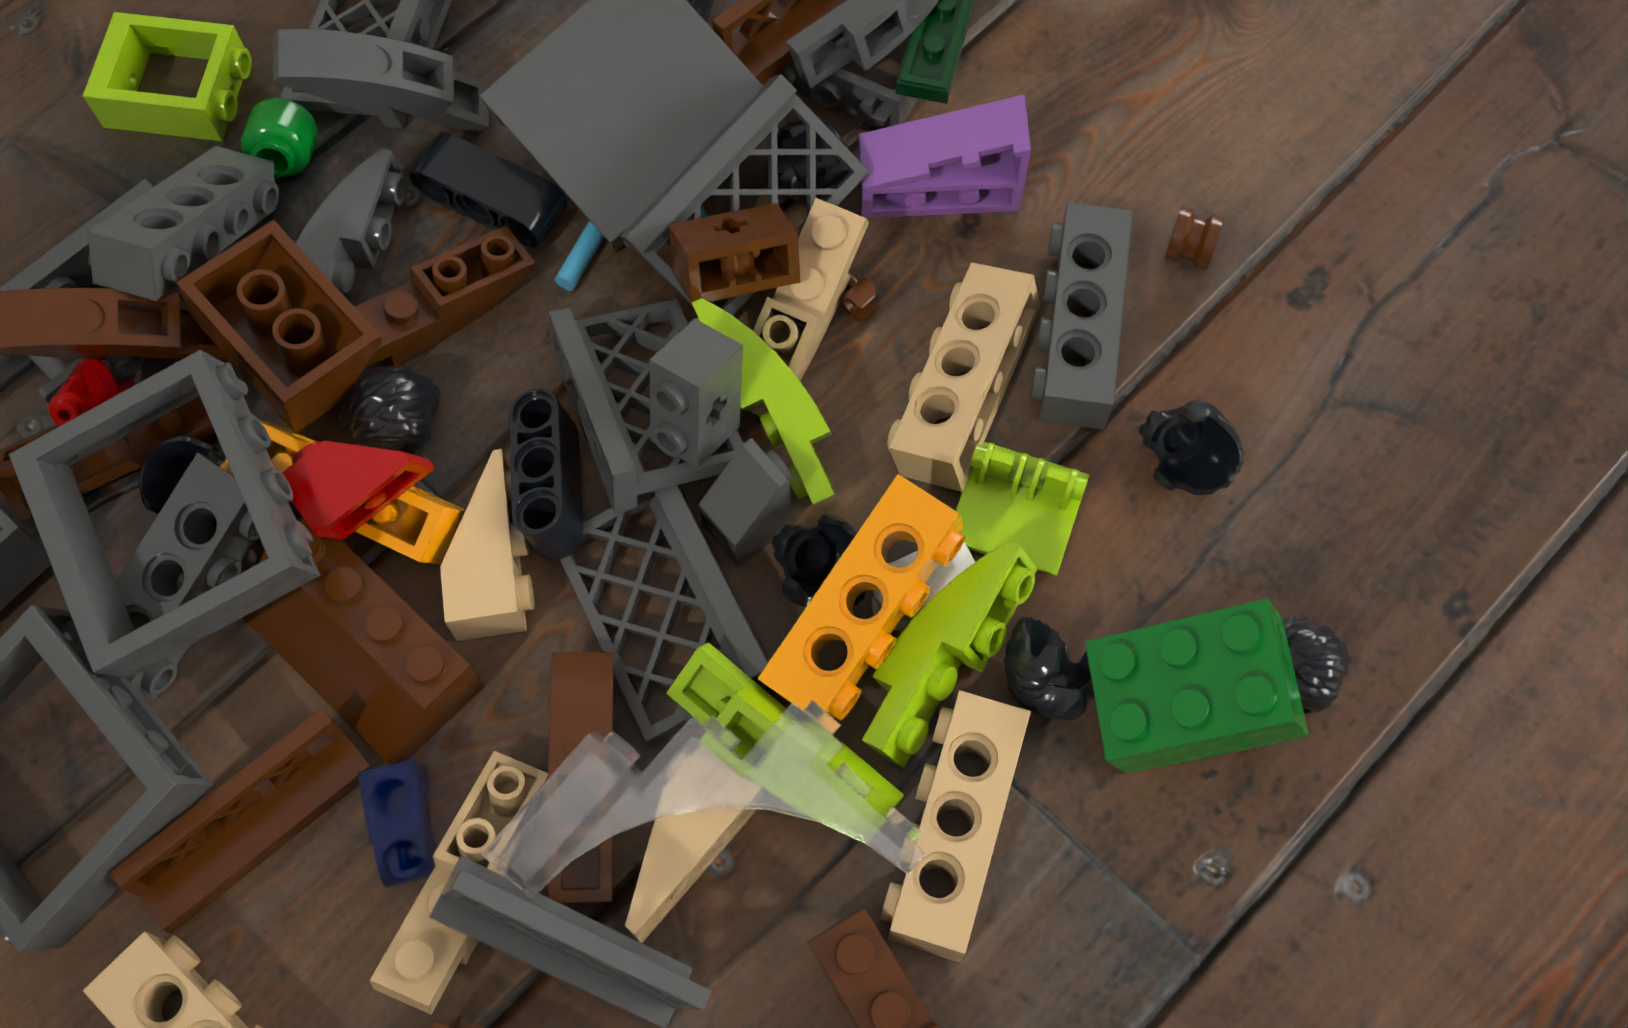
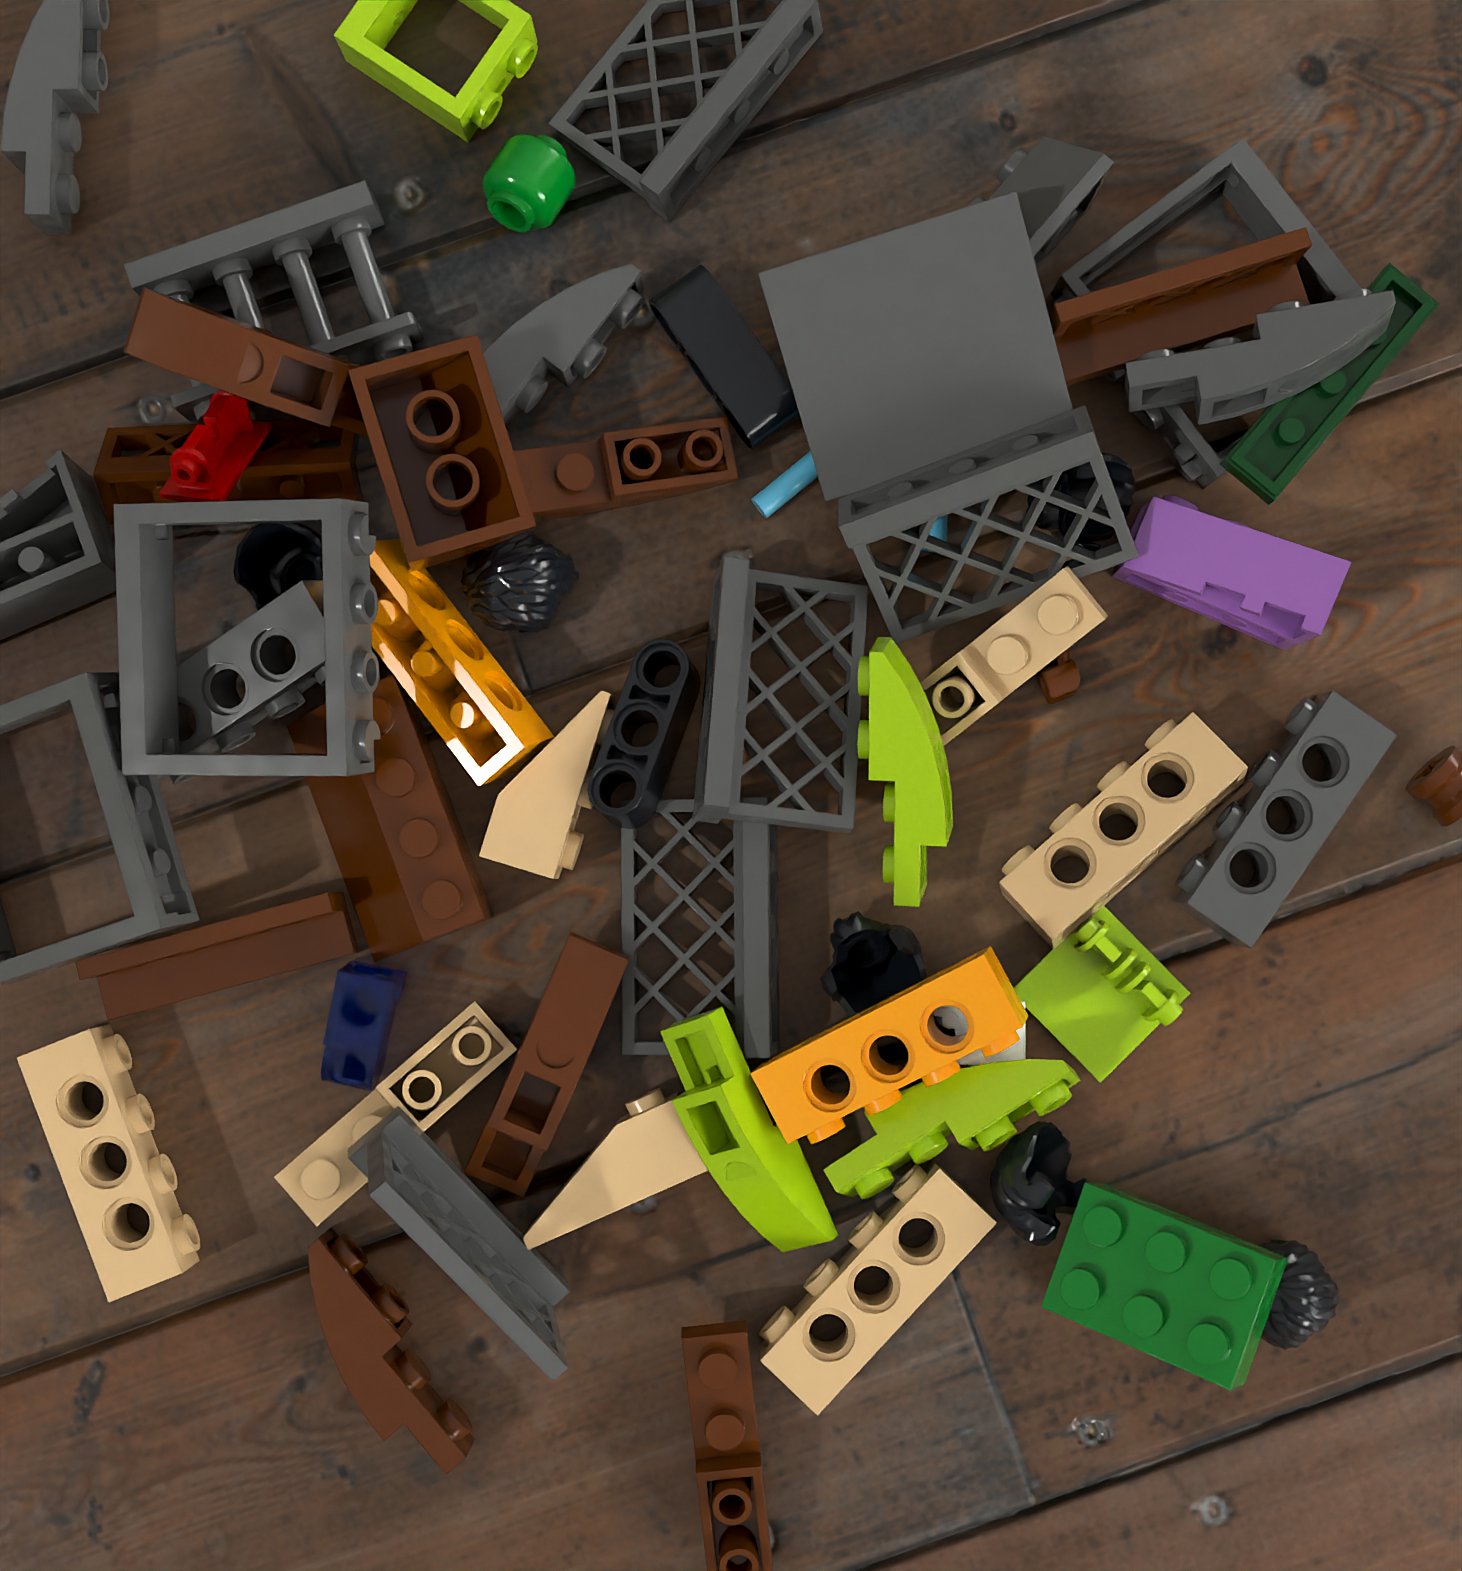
camera: 30 degrees right, 20 degrees up
(182, 222) = (386, 273): dark grey brick -> none
(347, 484) = (440, 681): red slope -> none
(377, 73) = (662, 182): dark grey slope -> none
(604, 793) = (650, 1150): clear arch -> none
(695, 393) = (825, 757): dark grey brick -> none
(735, 253) = (945, 598): reddish brown brick -> none
(748, 502) = (831, 872): dark grey slope -> none
(1194, 448) = (1307, 1026): black hair -> none

